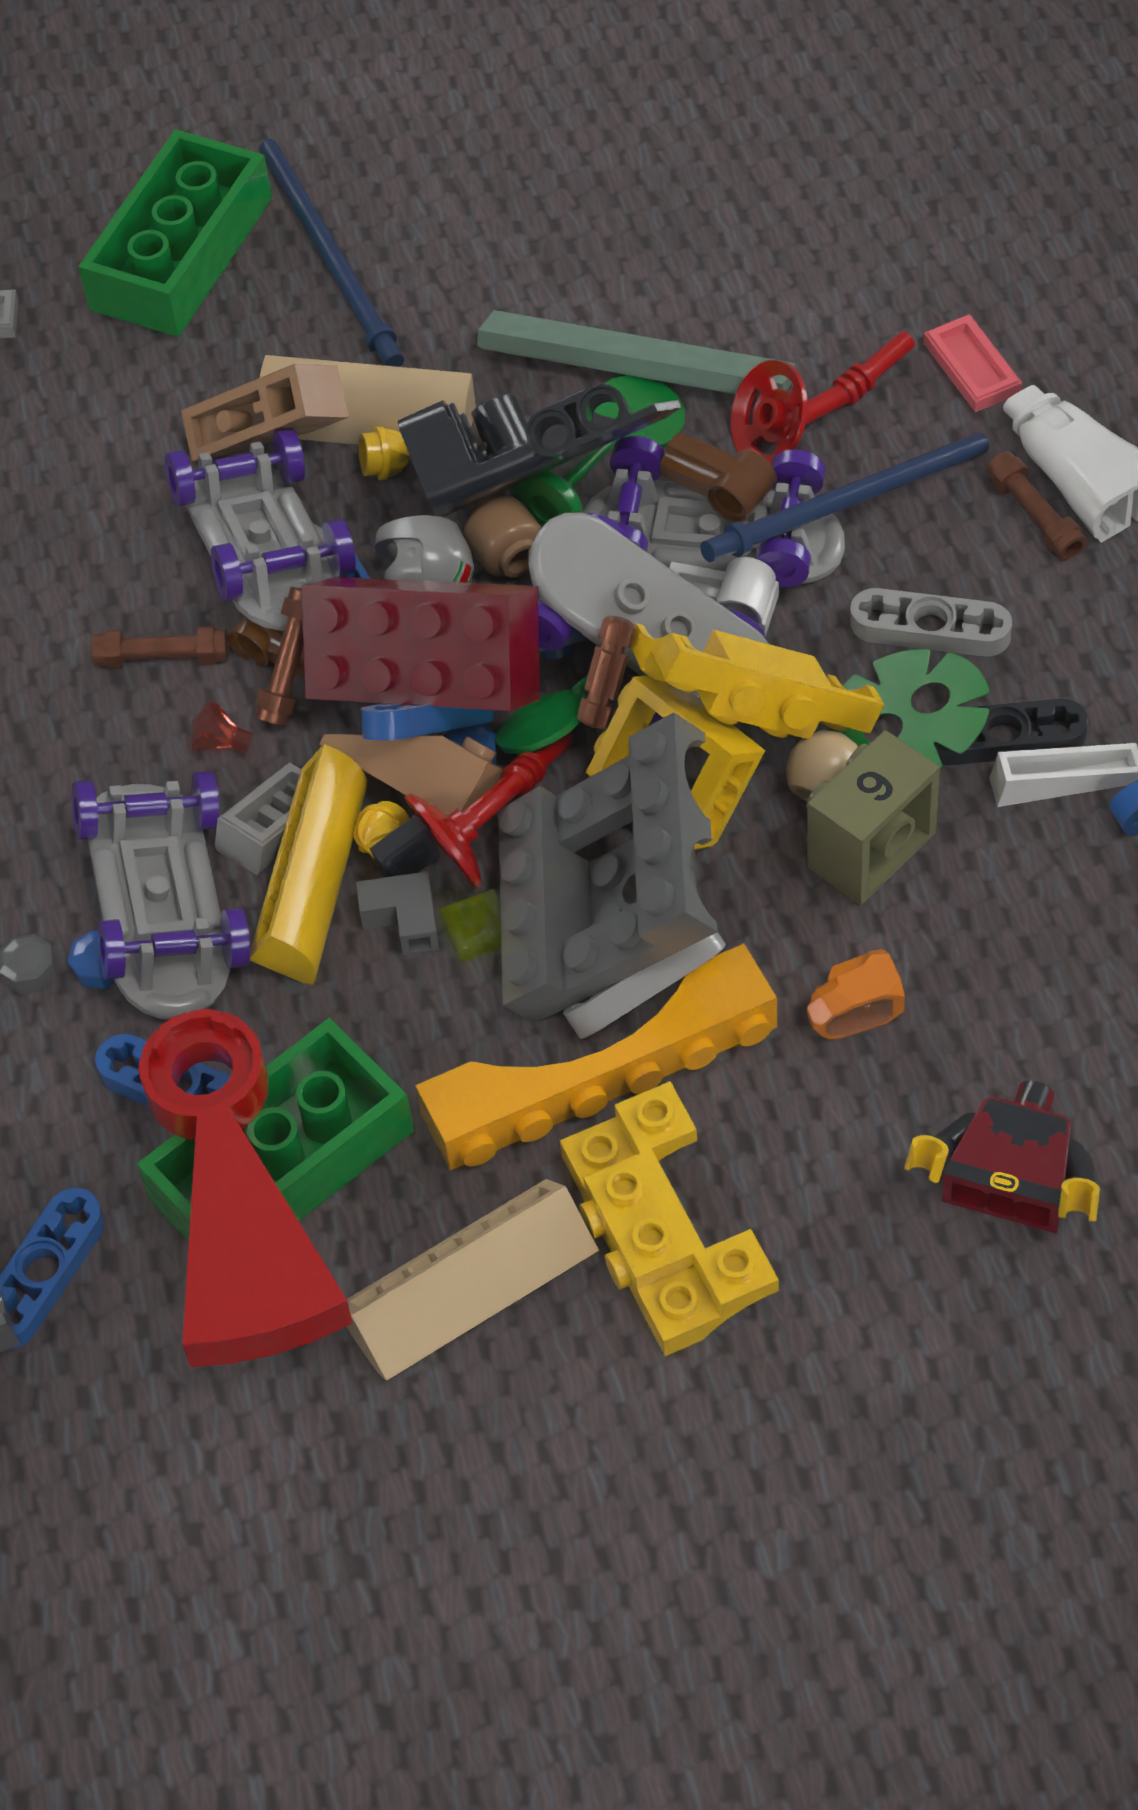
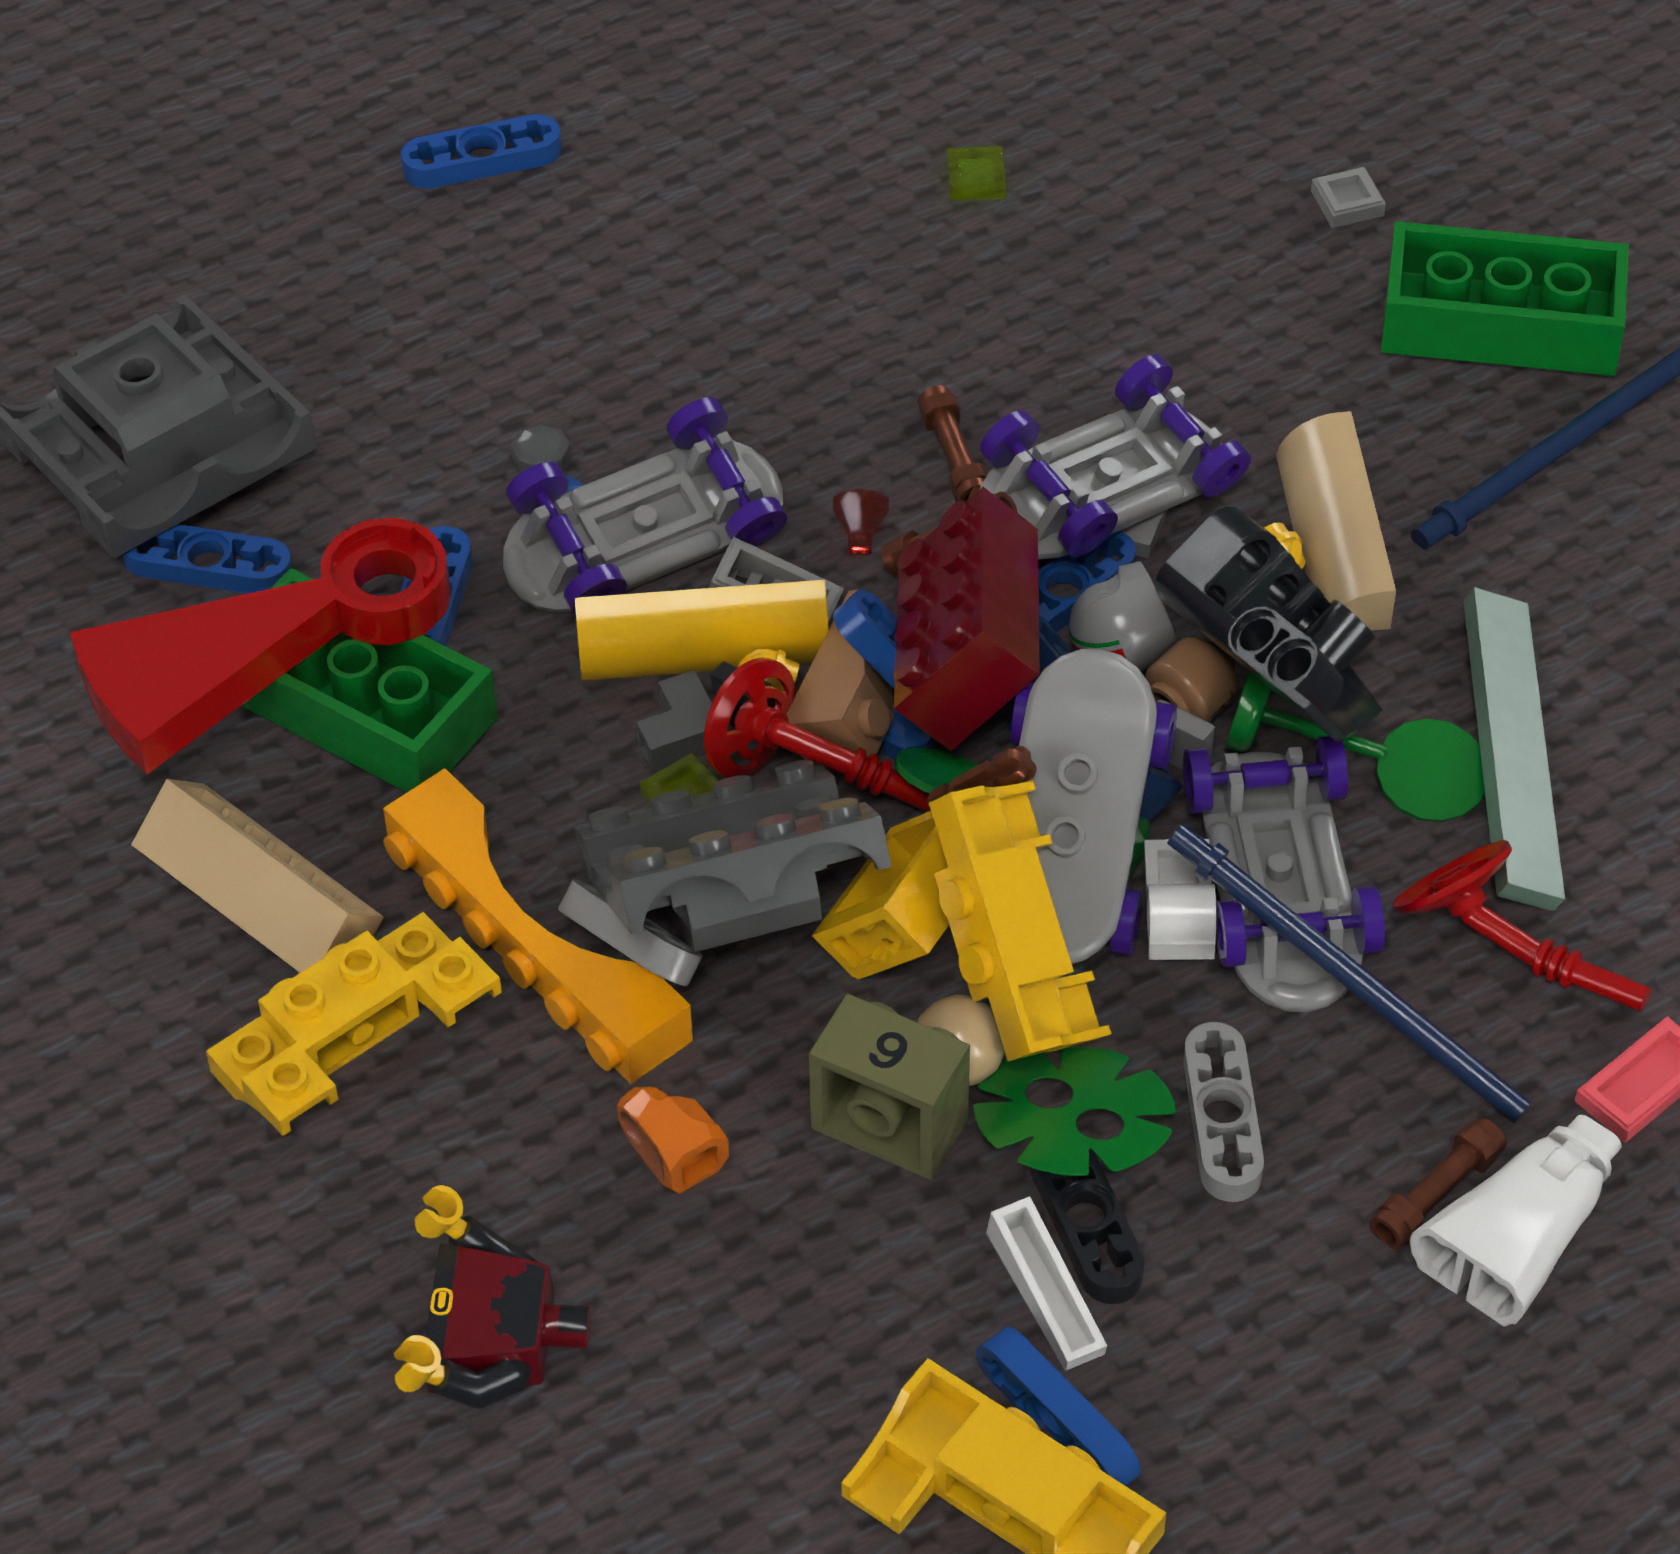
camera: 70 degrees right, 5 degrees down
(292, 397) = (1275, 437): medium nougat slope -> none
(728, 482) = (1329, 851): reddish brown piece -> none

